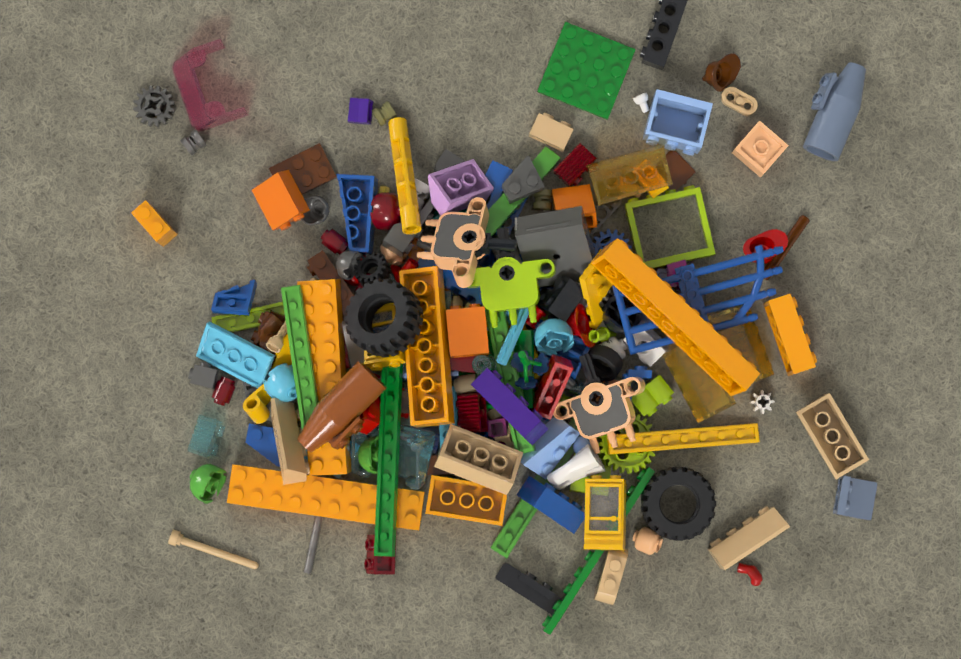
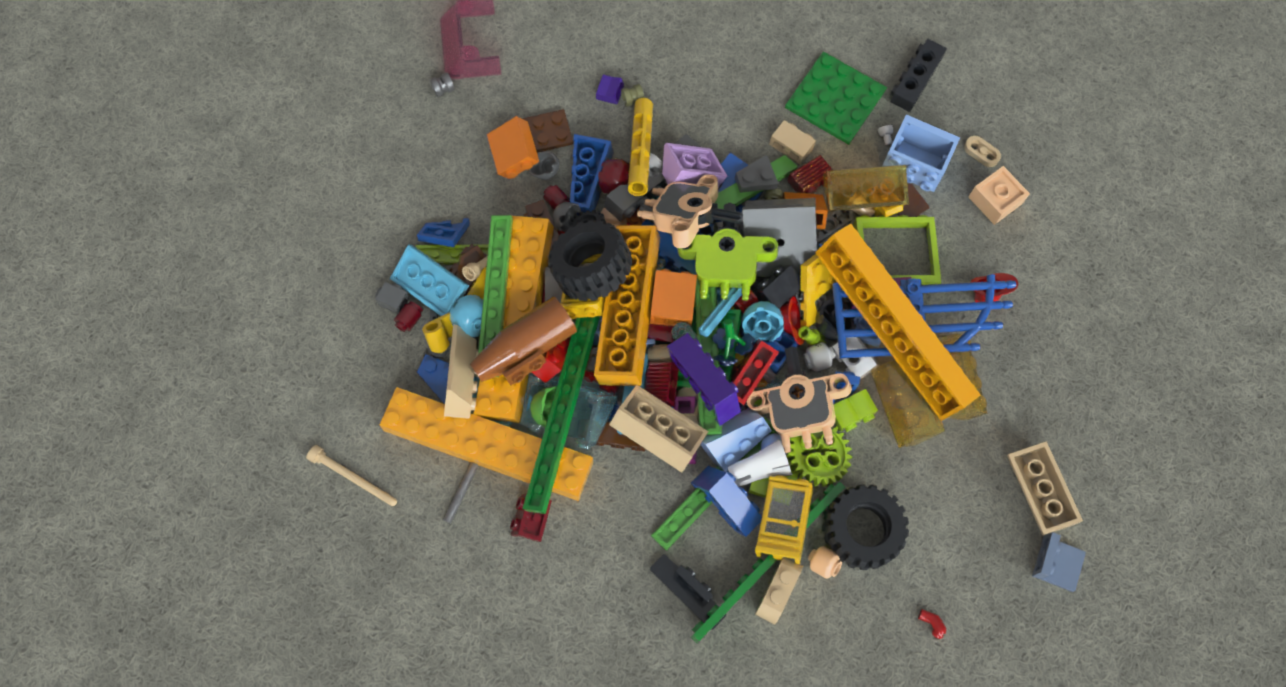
camera: 10 degrees right, 15 degrees down
(154, 223) = (382, 142): light orange brick -> none
(160, 102) = (413, 46): dark grey gear -> none
(206, 436) = (377, 357): clear light blue brick -> none
(206, 481) = (365, 402): bright green cylinder -> none
(465, 501) = (635, 476): light orange brick -> none
(609, 356) = (818, 356): black tyre -> none
(686, 438) = (882, 460): yellow tile -> none
(722, 72) = (970, 121): reddish brown piece -> none
(748, 537) = (937, 580): tan slope -> none
(759, 406) = (974, 437): white gear -> none
(789, 334) = (1009, 376): light orange brick -> none
(792, 236) = (1023, 282): reddish brown axle -> none
(837, 107) = (1081, 174): sand blue piece -> none

